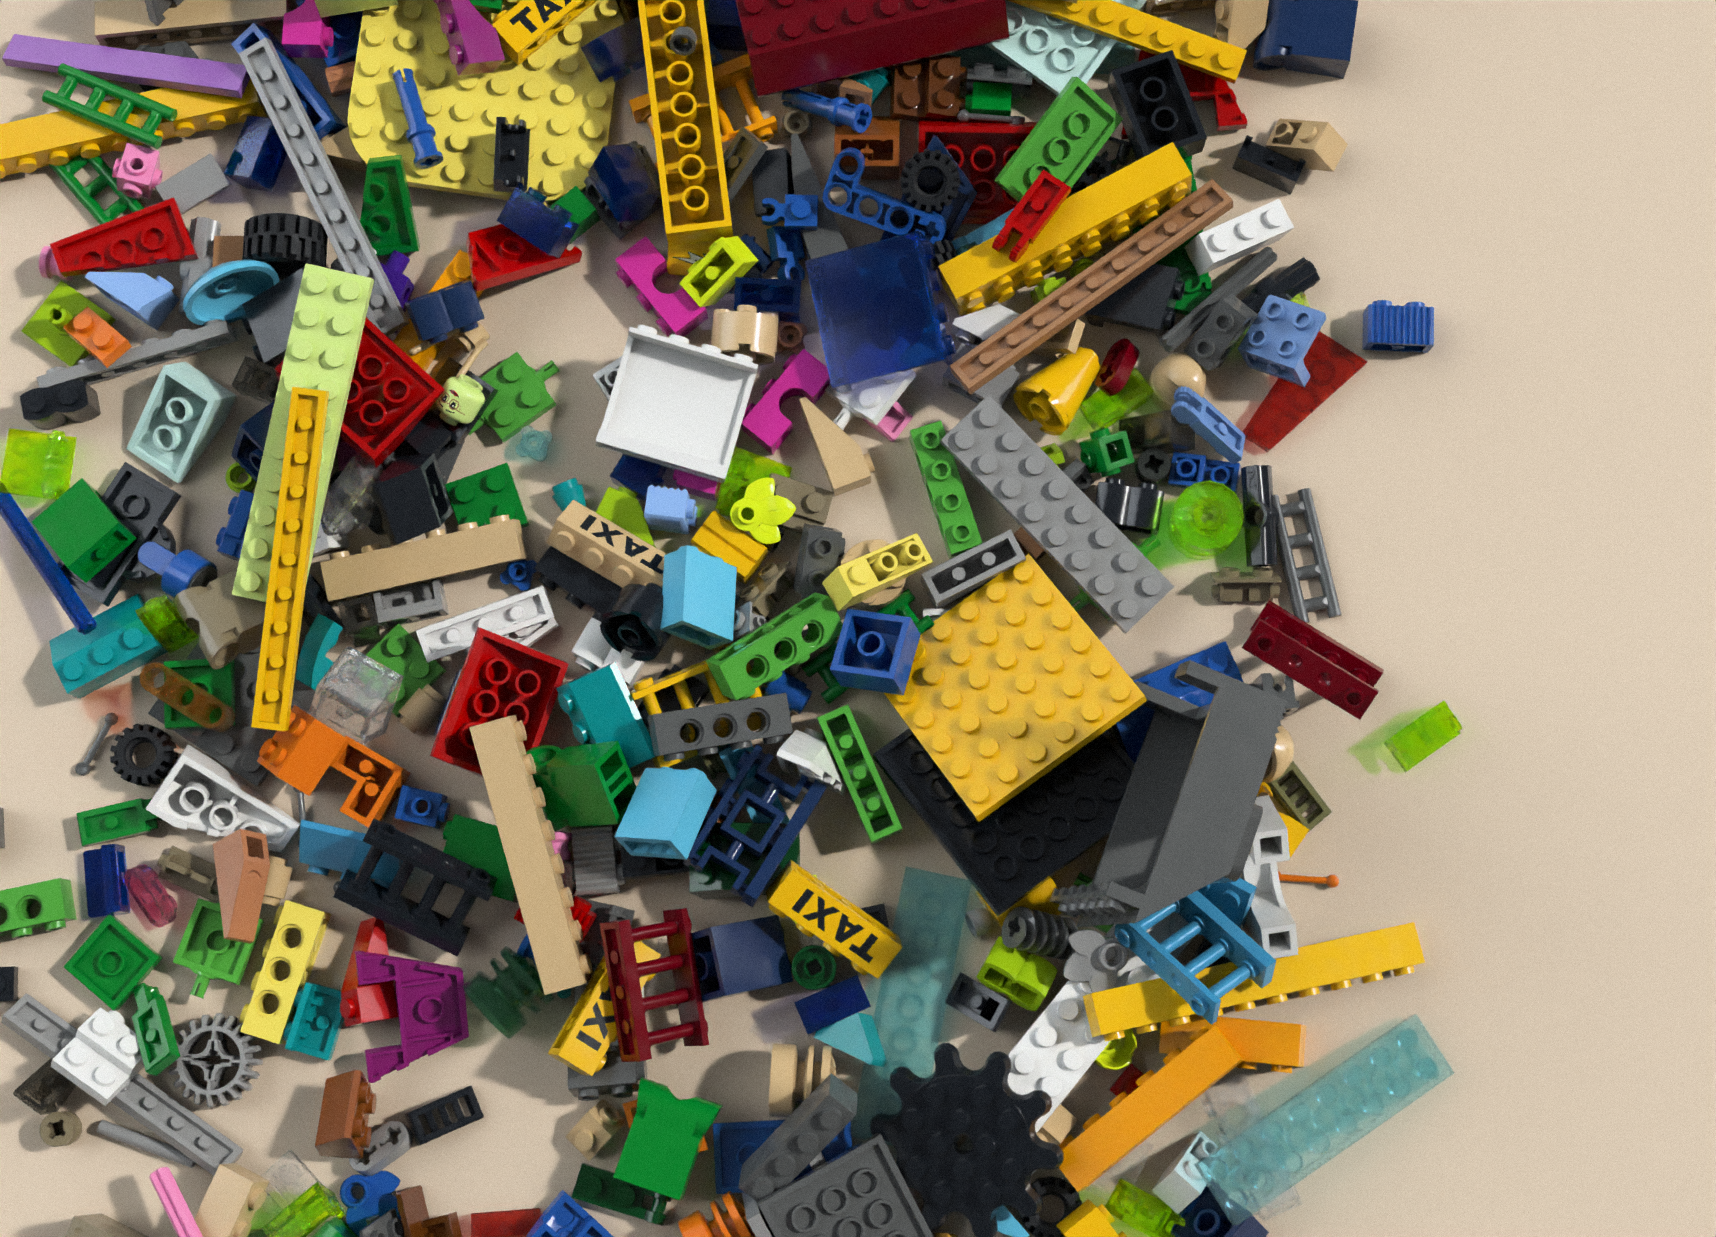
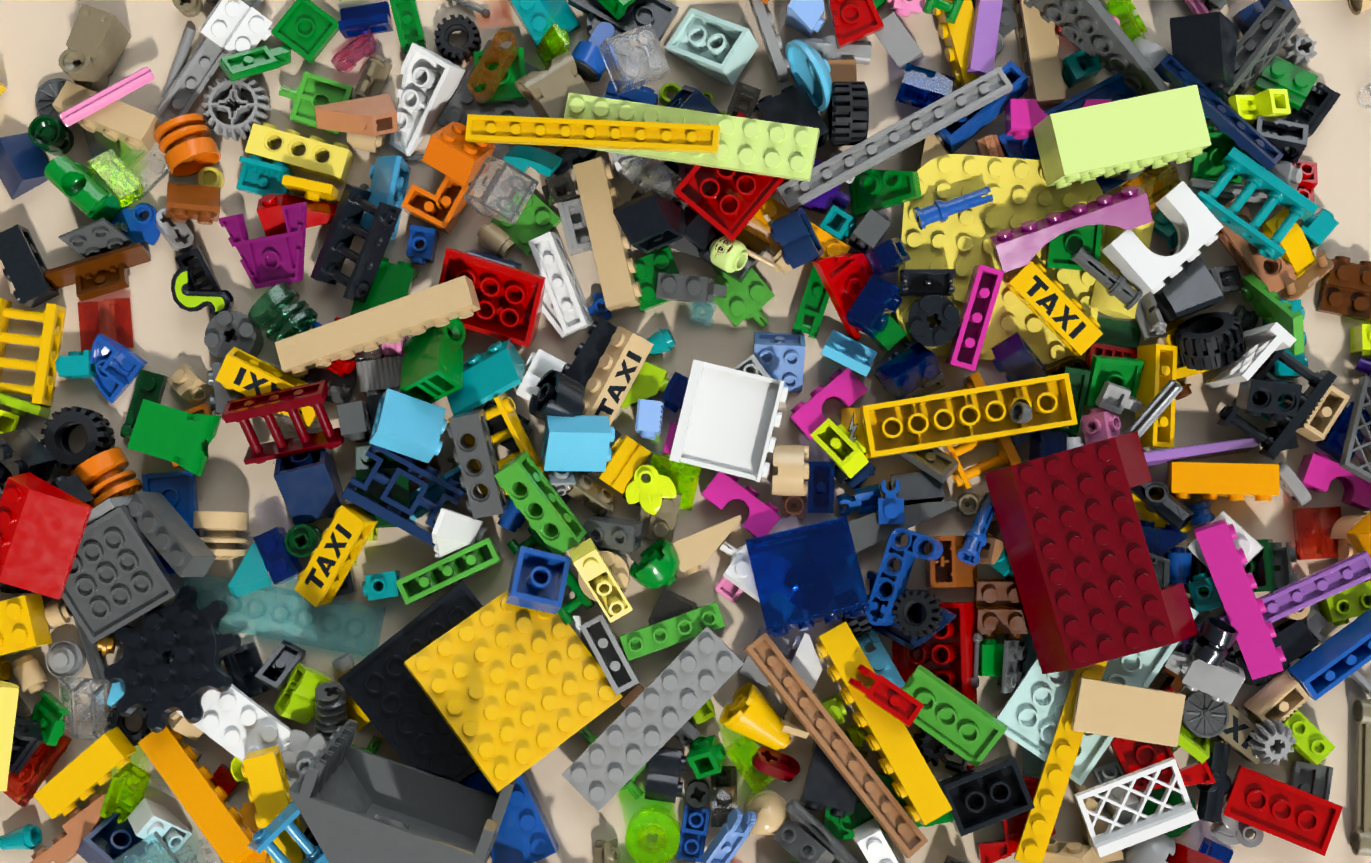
camera: 90 degrees right, 5 degrees up
(191, 512) = (634, 58): none -> clear brick
(260, 1125) = (186, 145): none -> orange wheel
(309, 1099) = (210, 177): none -> light yellow tile
(337, 949) = (311, 189): none -> yellow plate
(427, 264) = (839, 223): none -> teal brick
(441, 225) = (869, 231): none -> dark grey brick
(476, 203) = (887, 257): none -> clear blue brick
(479, 1111) = (197, 299): none -> black animal
(501, 456) = (688, 288): none -> dark grey hinge
(514, 1064) = (229, 323): none -> dark grey brick
(529, 304) = (812, 305): none -> green plate
(558, 134) = (945, 314): none -> black brick
(559, 98) = (975, 317): none -> dark pink brick
(594, 343) = (782, 357): none -> medium blue bracket
(596, 260) = (849, 352): none -> medium azure bracket
(656, 893) = (354, 421): none -> dark grey brick
(860, 507) = (657, 565): none -> green cylinder
(876, 866) = (381, 585): none -> teal brick
(913, 494) = (670, 605): none -> clear smoke slope
(977, 1048) = (242, 668): none -> black hinge

